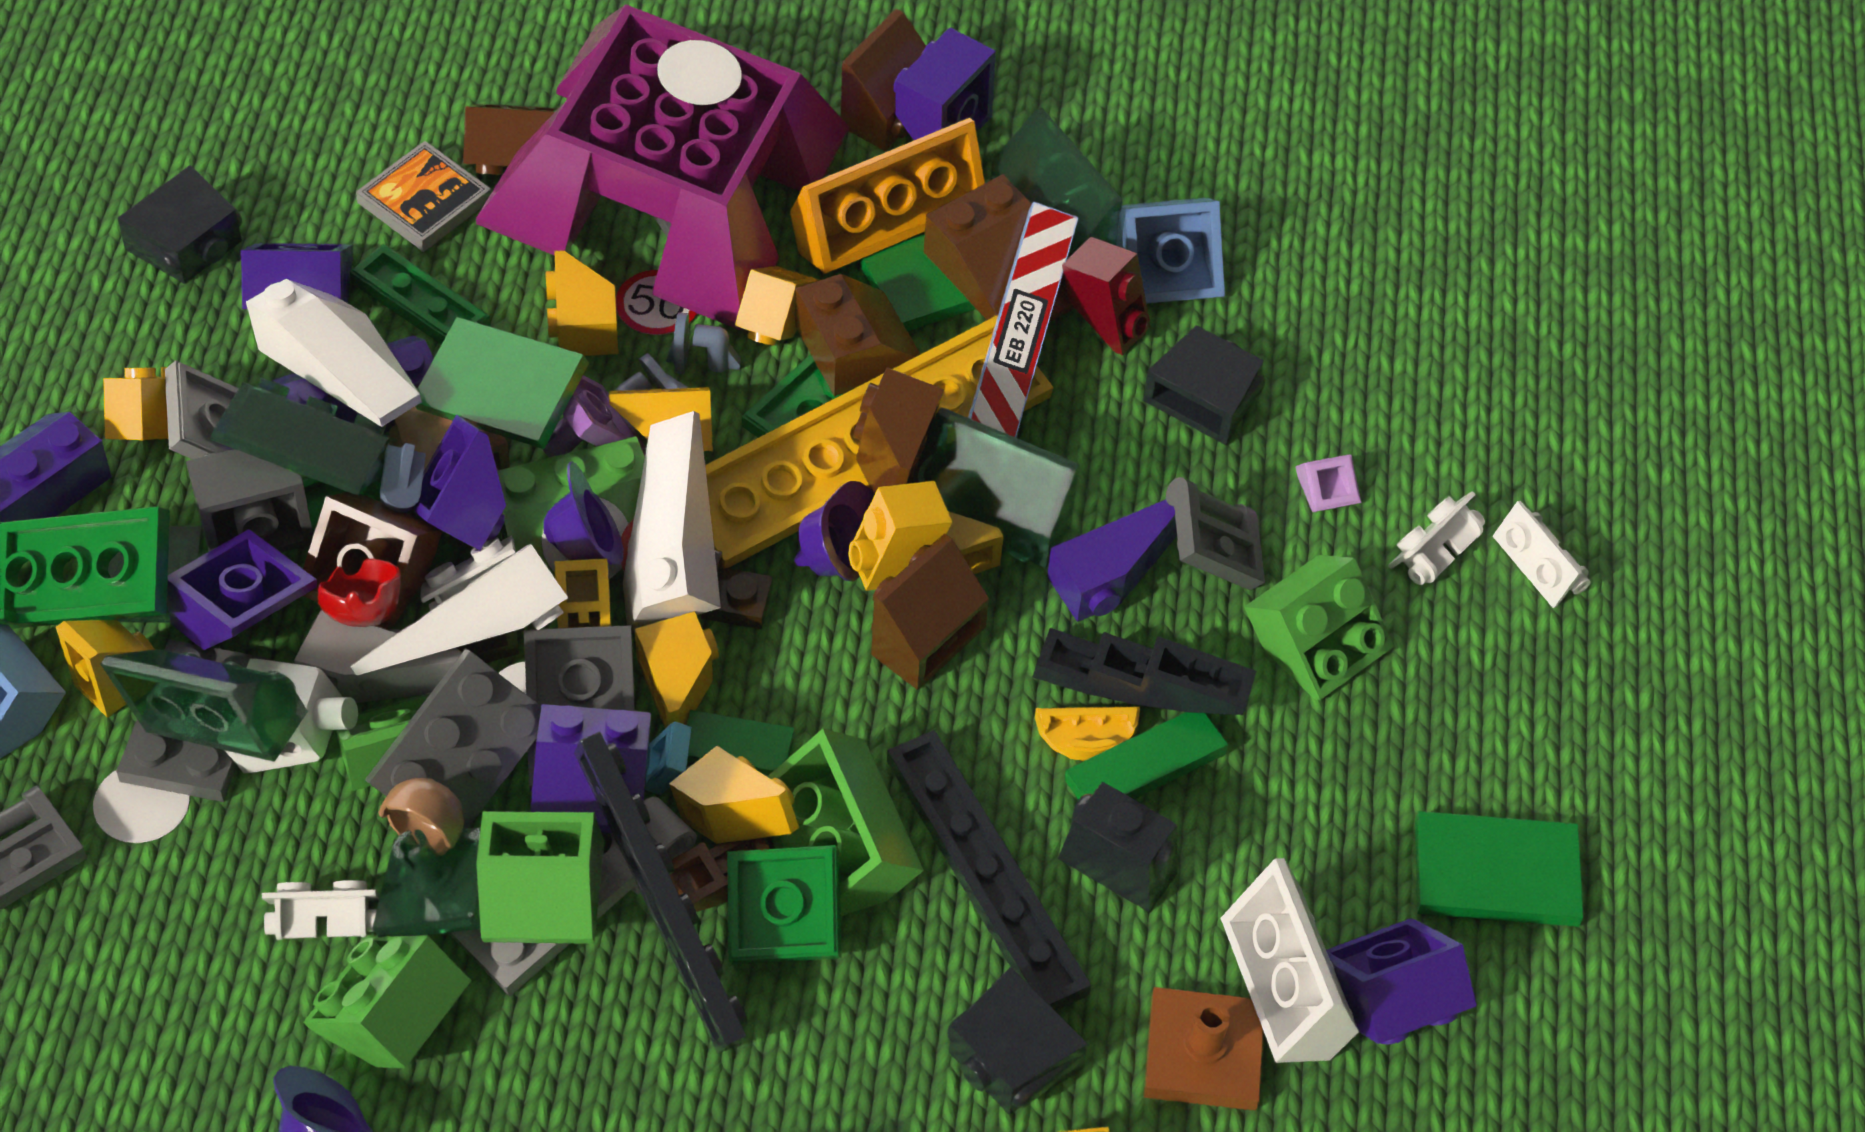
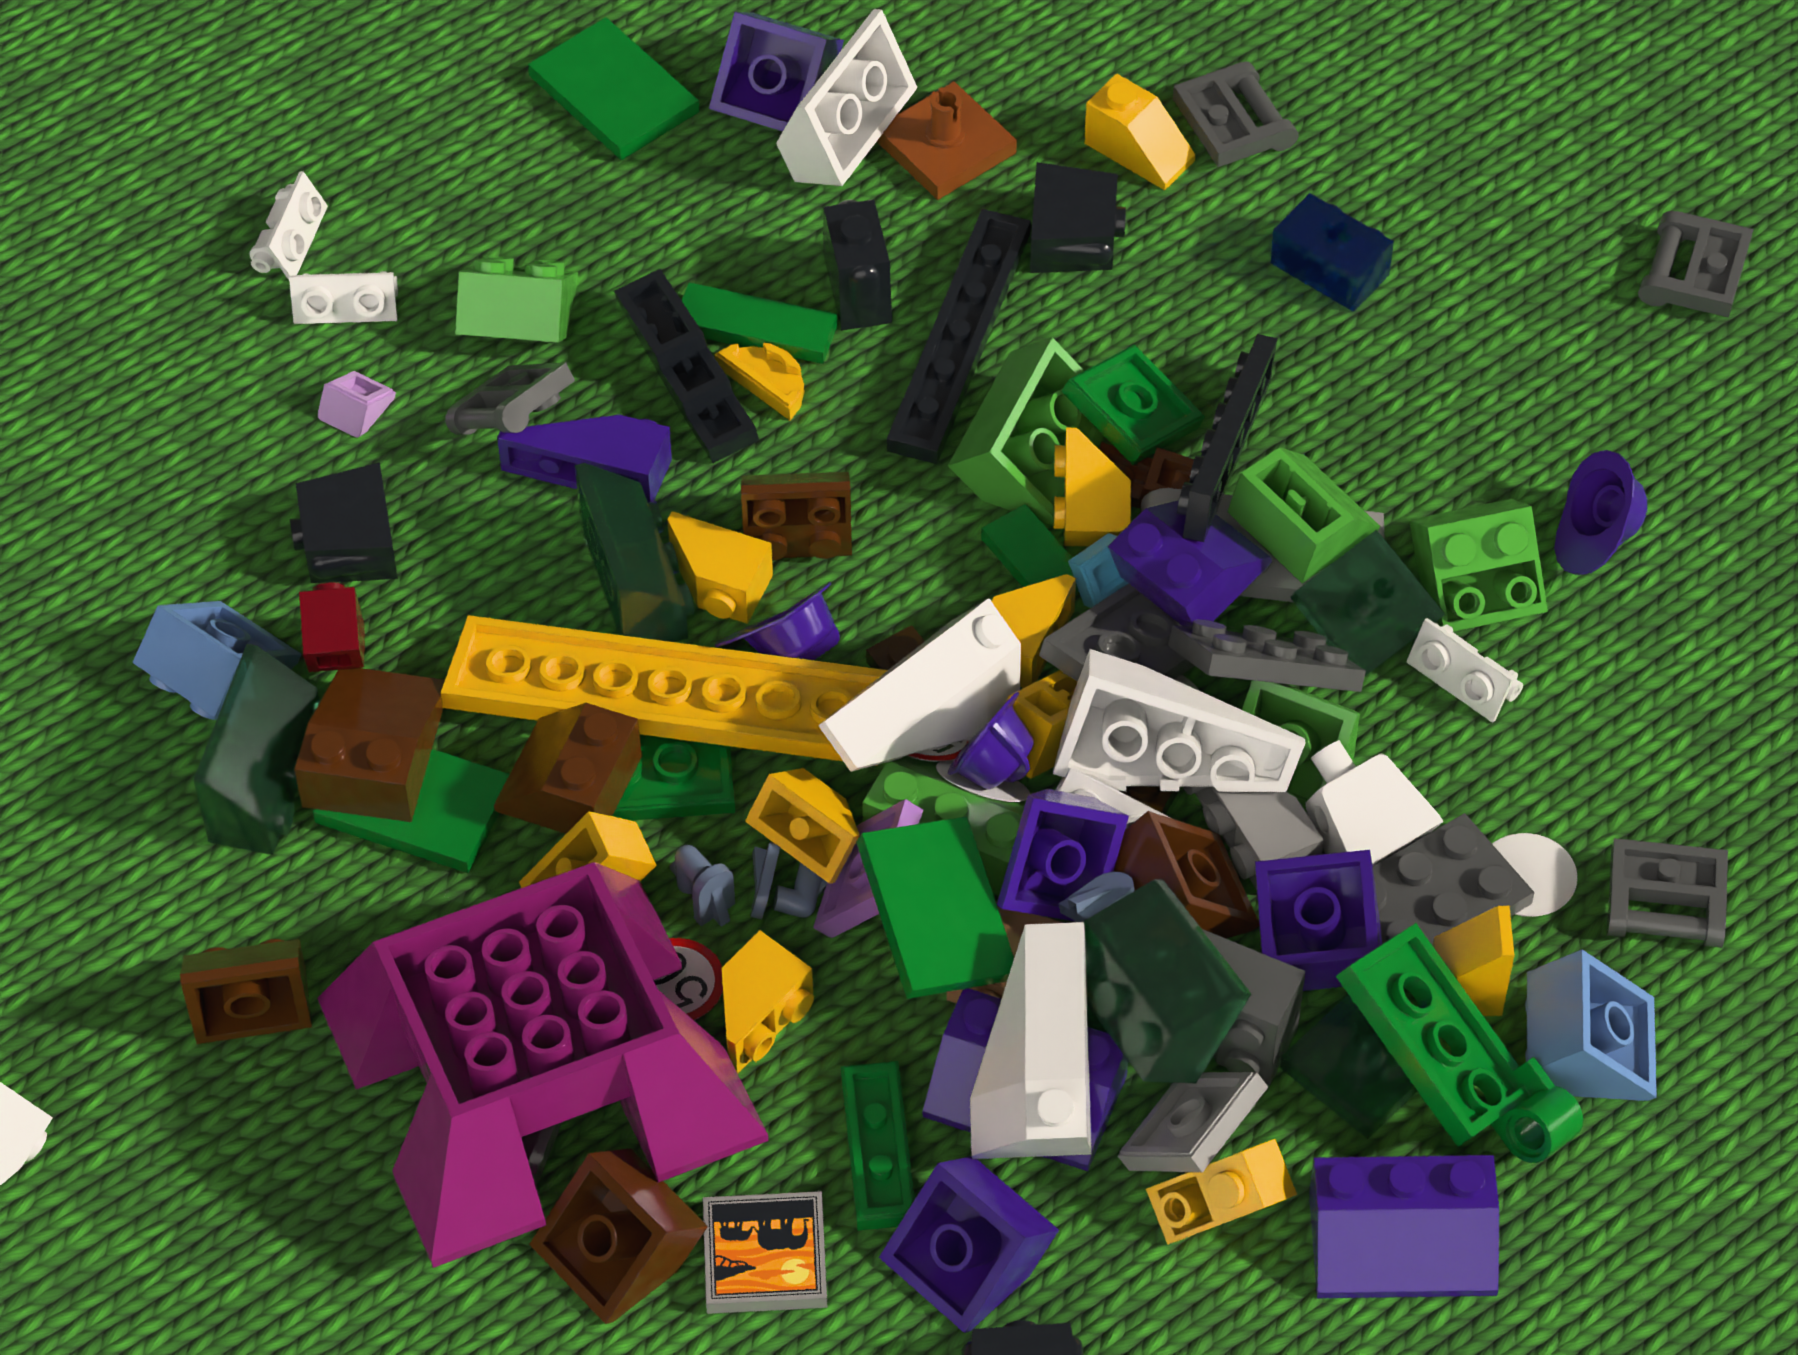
camera: 130 degrees left, 0 degrees up
(208, 701) = (1436, 811): clear green slope -> none
(362, 597) = (1228, 820): red hair -> none
(426, 807) = (1346, 606): medium nougat hair -> none
(699, 72) = (466, 1000): white sticker -> none
(885, 197) = (384, 862): light orange slope -> none
(894, 427) = (675, 608): reddish brown slope -> none
(895, 528) = (764, 540): yellow slope -> none
(946, 85) = (220, 904): dark purple slope -> none
(1023, 319) = (452, 648): tile -> none

